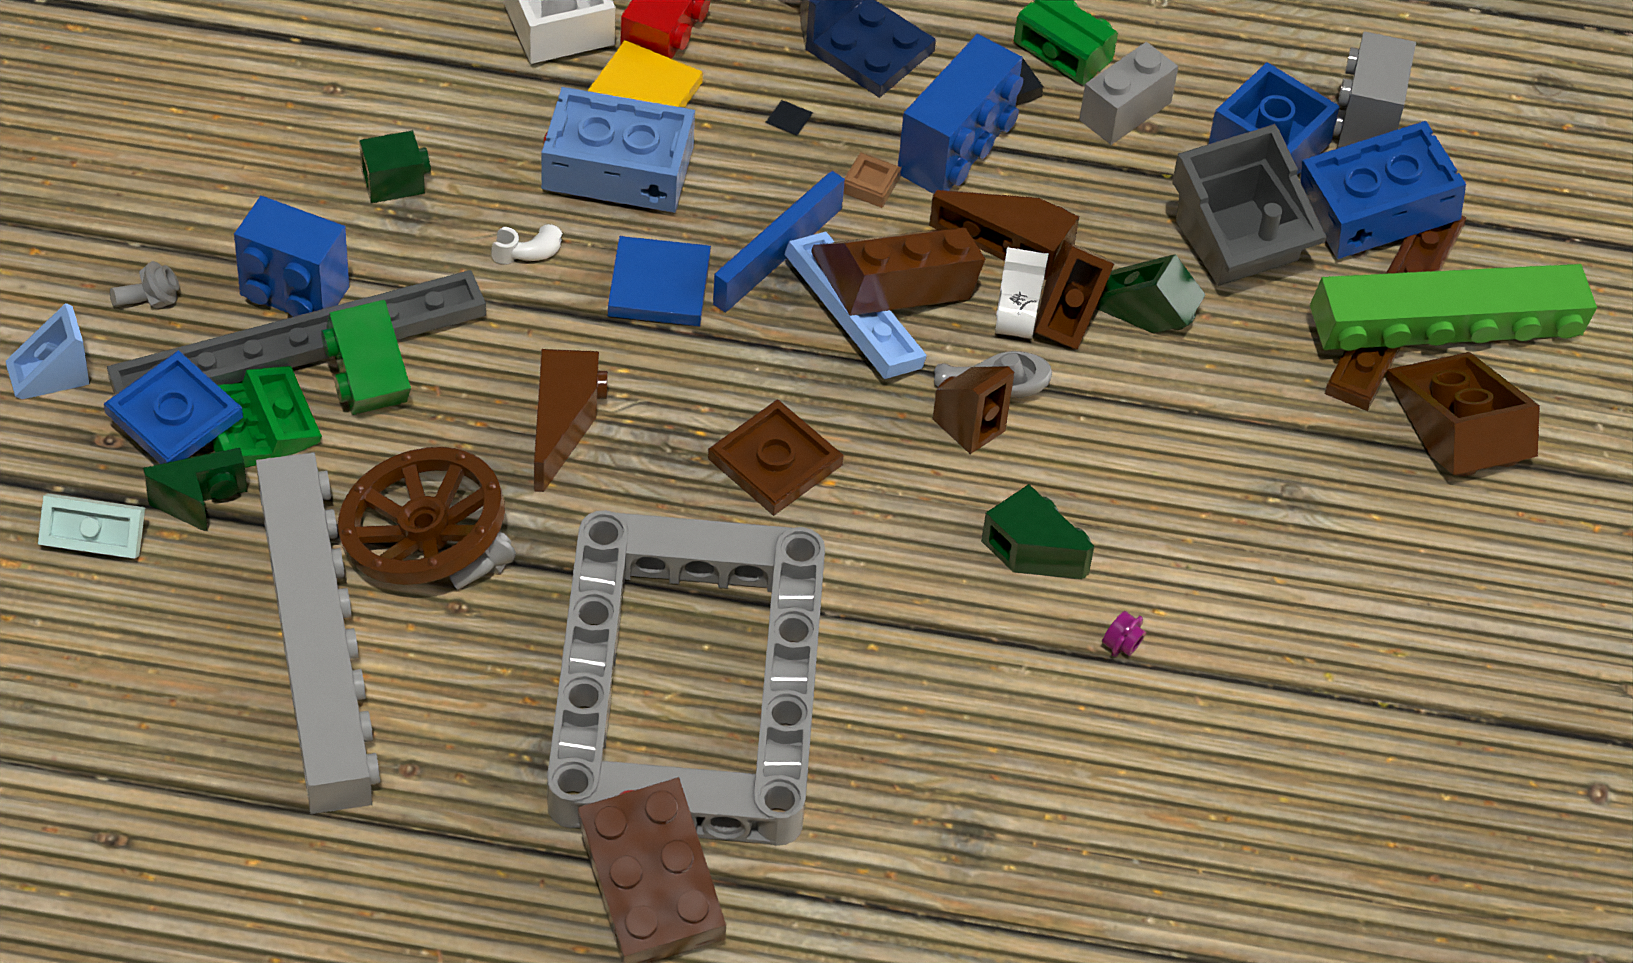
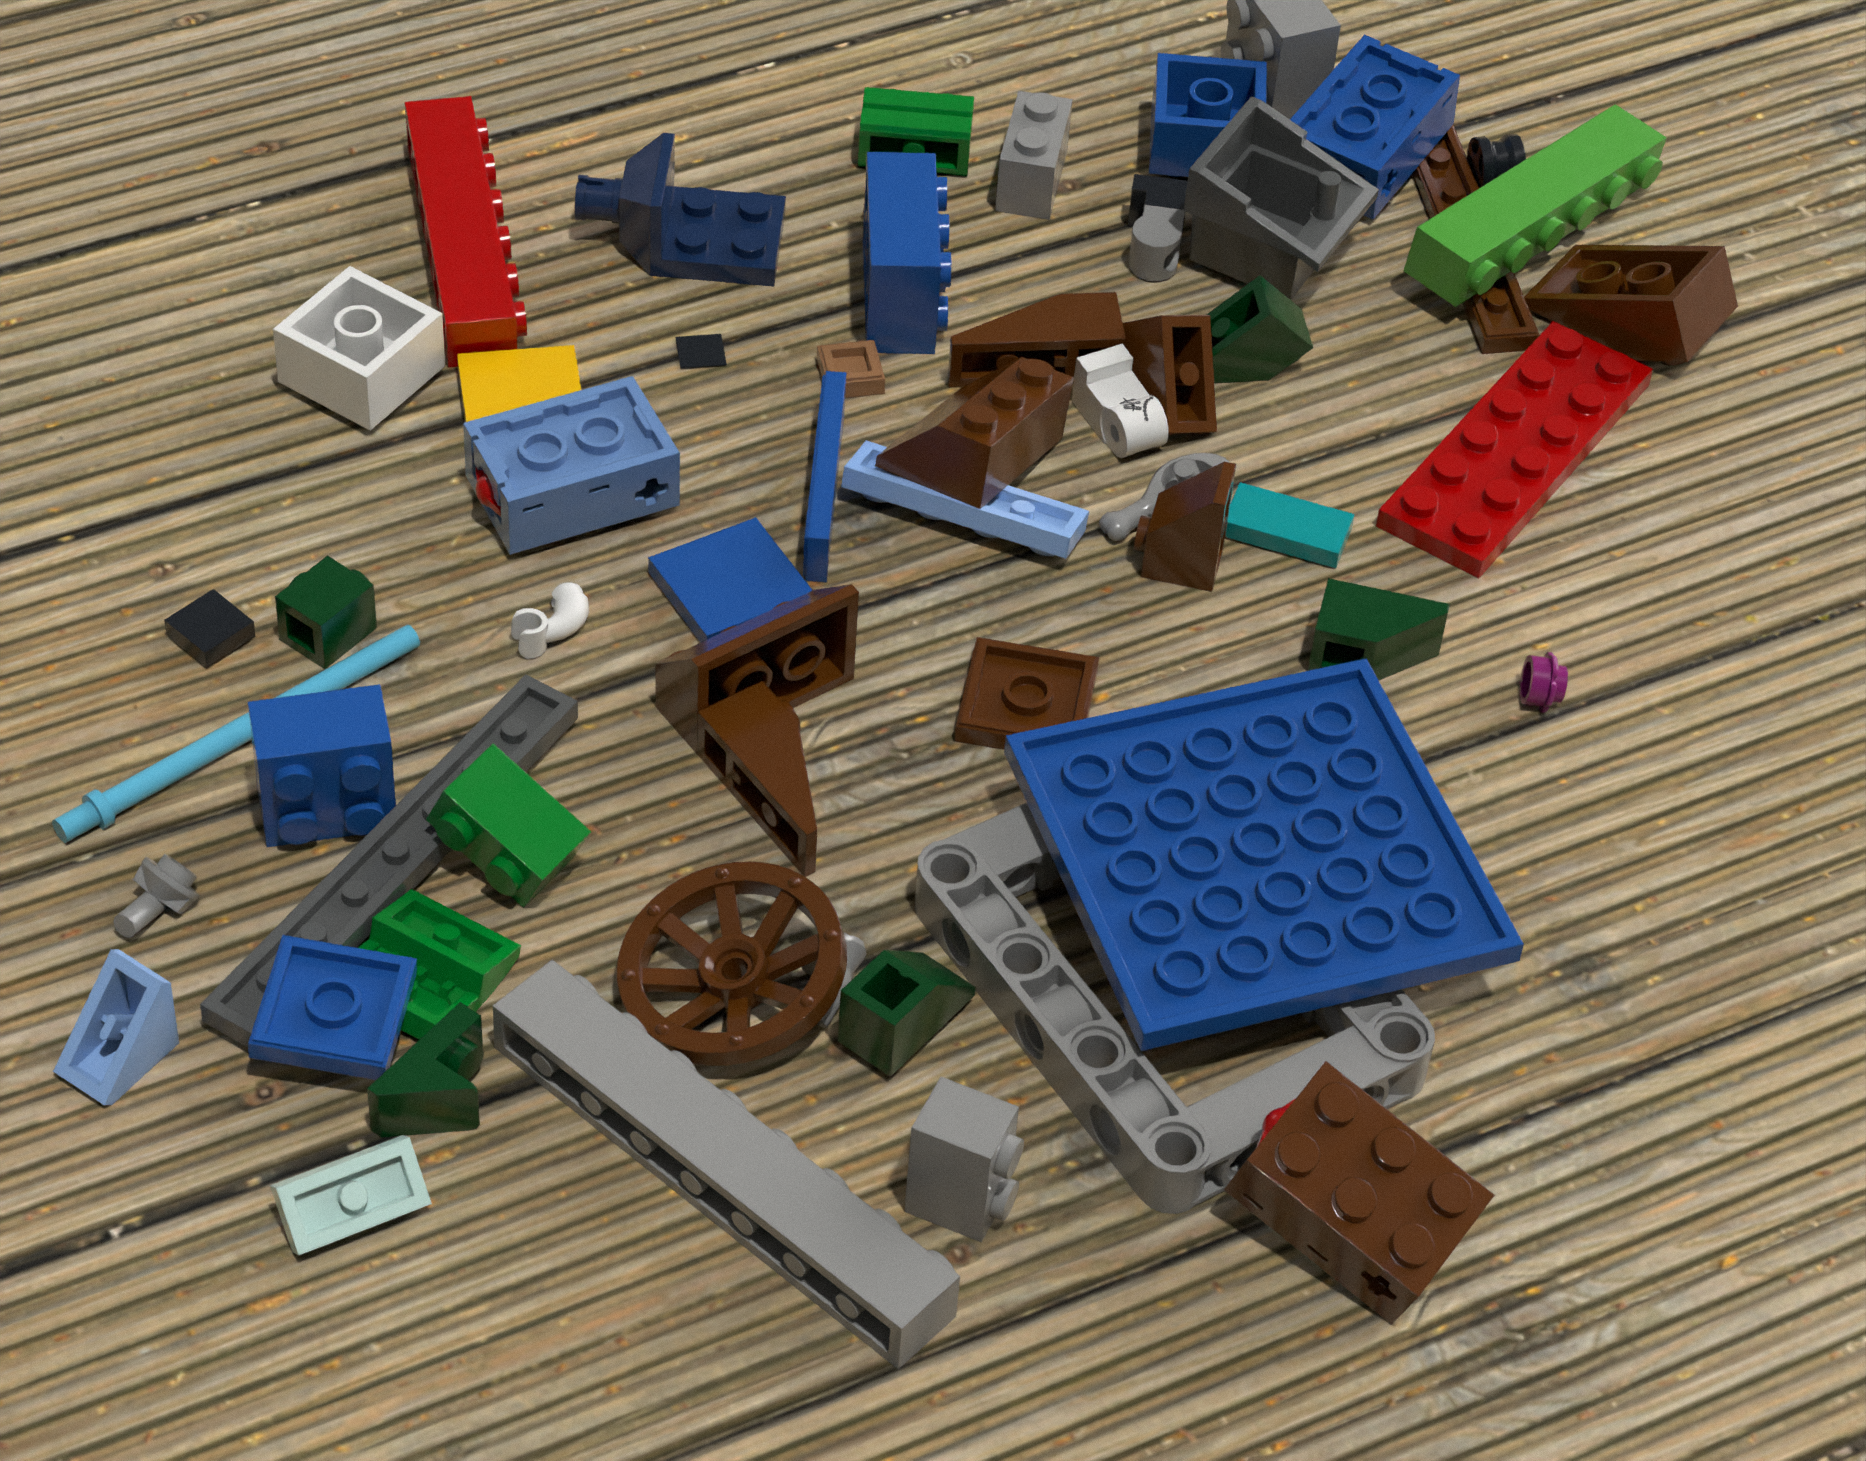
camera: 35 degrees left, 5 degrees down
(234, 216) = (102, 807): none -> medium azure bar
(322, 141) = (209, 628): none -> black tile
(436, 710) = (963, 1160): none -> light grey brick
(502, 598) = (898, 1006): none -> dark green slope
(630, 341) = (794, 649): none -> reddish brown slope
(794, 631) = (1258, 853): none -> blue plate
(1060, 437) = (1288, 525): none -> teal tile
(1155, 195) = (1156, 225): none -> light grey leg
(1276, 469) = (1514, 449): none -> red plate
(1462, 257) = (1493, 158): none -> black wheel

